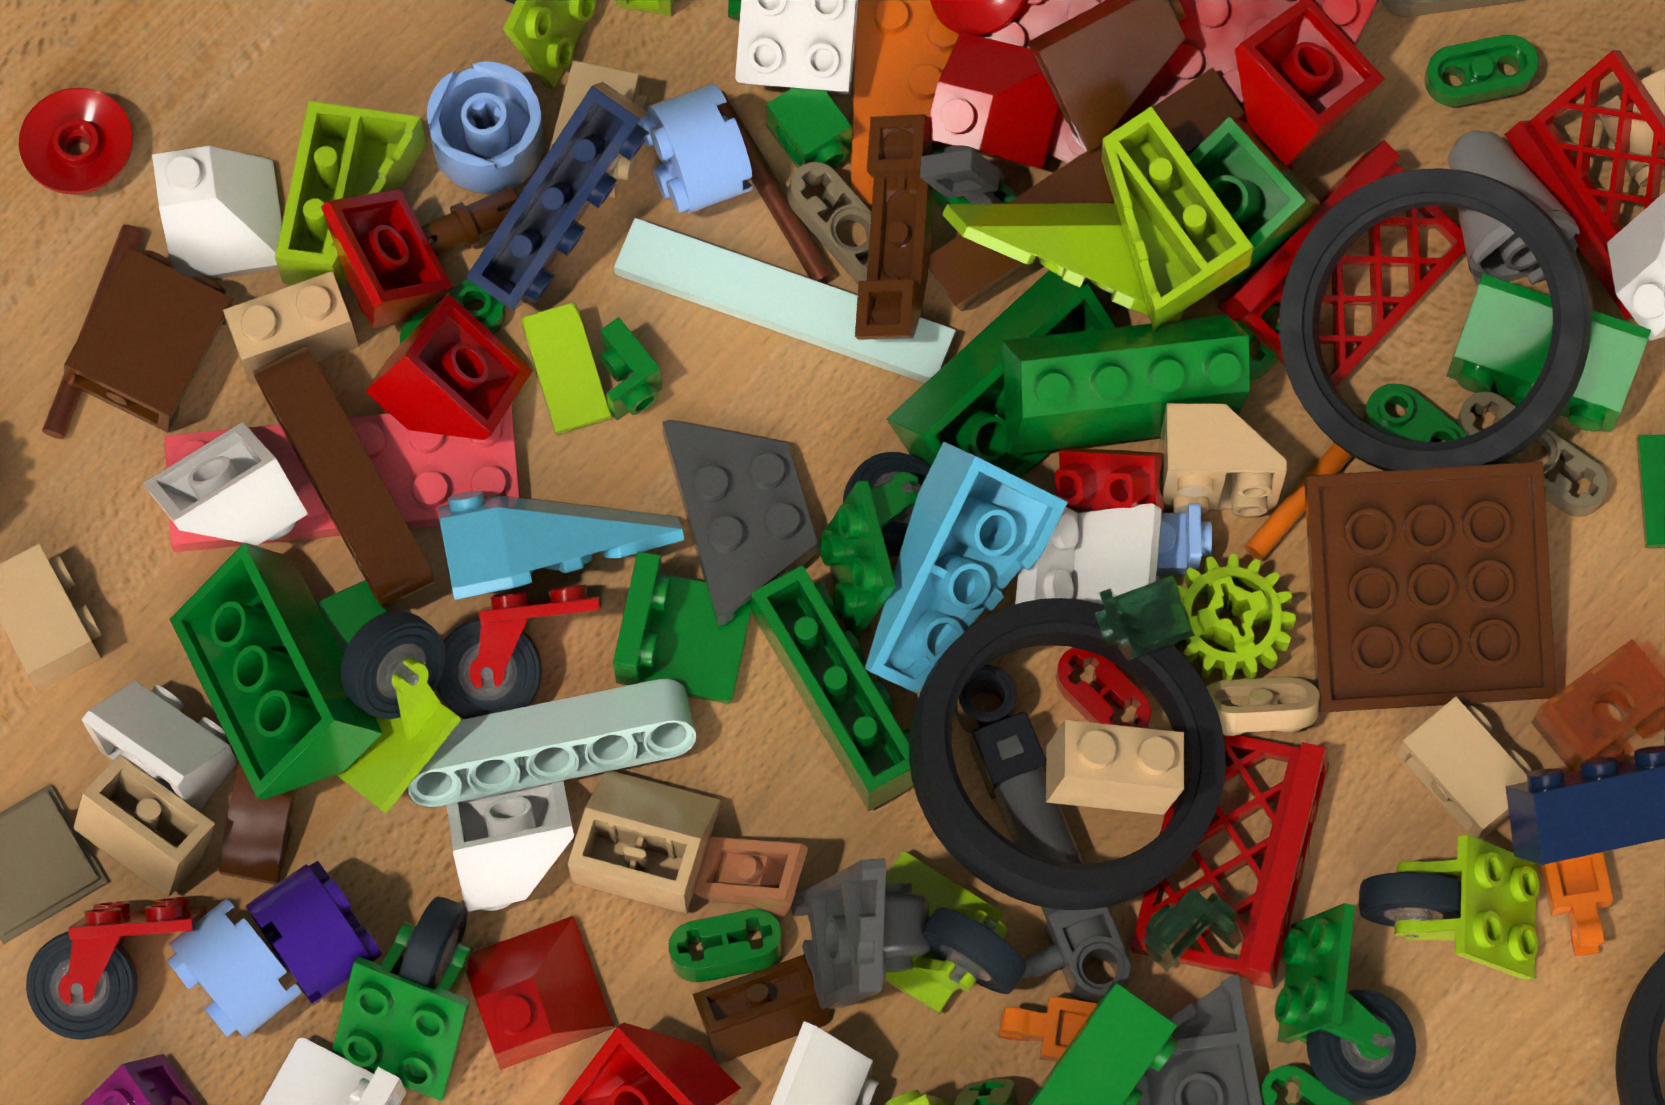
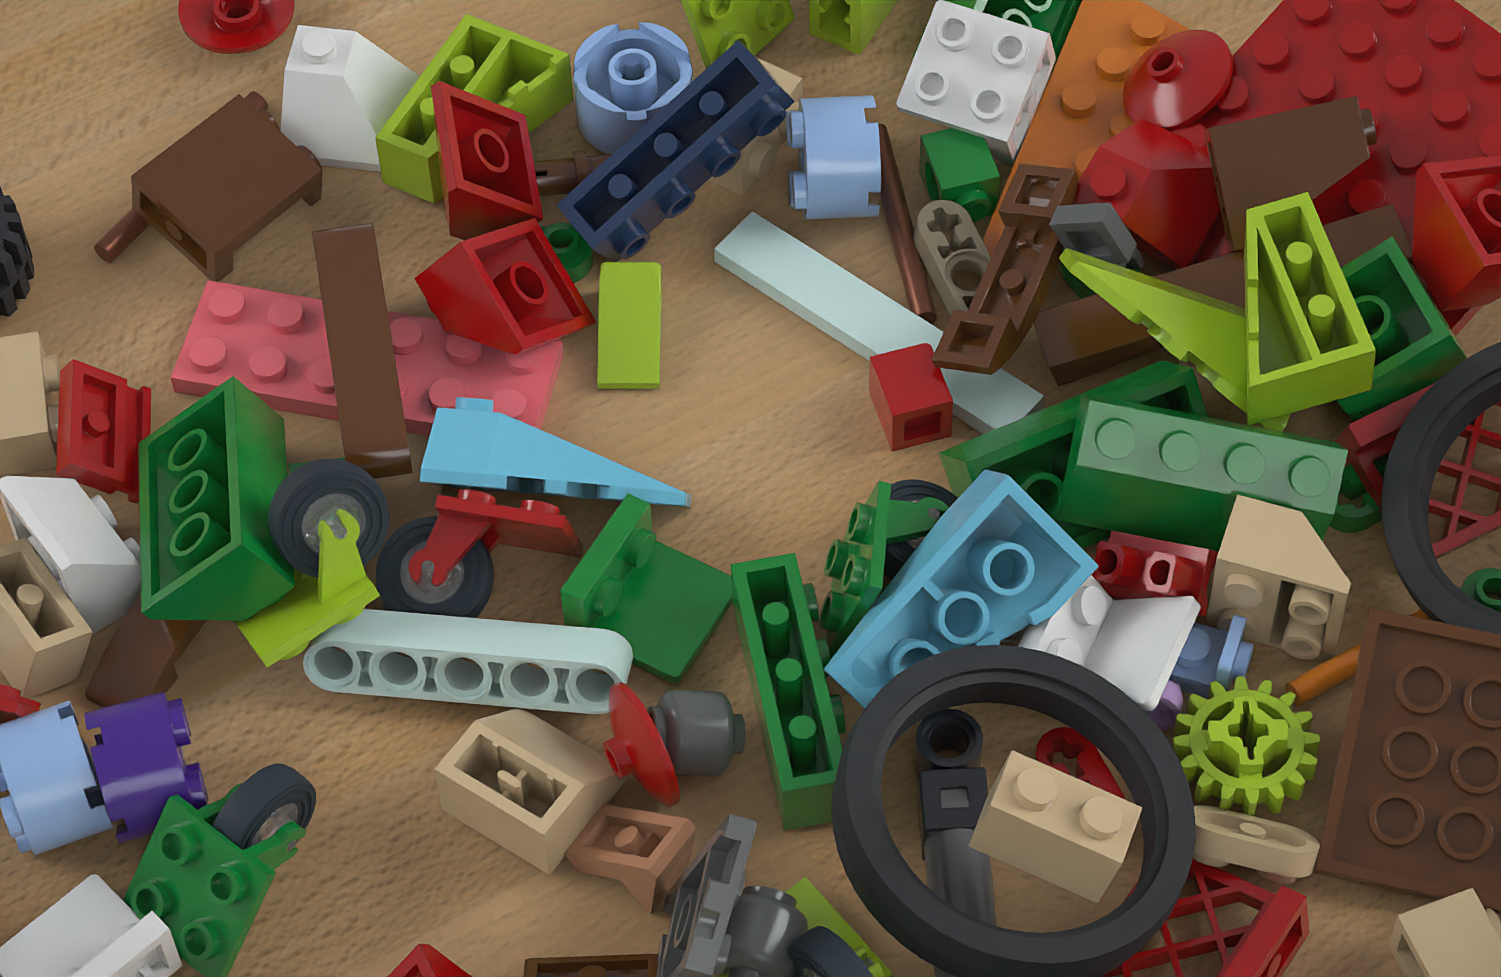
camera: 20 degrees right, 15 degrees down
(133, 619) = (101, 429): none -> red plate
(229, 491) = (245, 335): white slope -> none
(289, 318) = (392, 199): tan brick -> none
(508, 843) = (379, 744): white slope -> none
(537, 992) = (355, 907): red slope -> none
(628, 360) = (695, 344): green bracket -> none
(725, 945) = (578, 917): green beam -> none
(728, 783) = (639, 747): none -> red dish
(740, 510) = (757, 498): dark grey wing -> none
(764, 749) = (698, 731): none -> dark grey head
(840, 367) = (910, 396): none -> red panel
(1144, 618) = (1141, 697): clear green bracket -> none

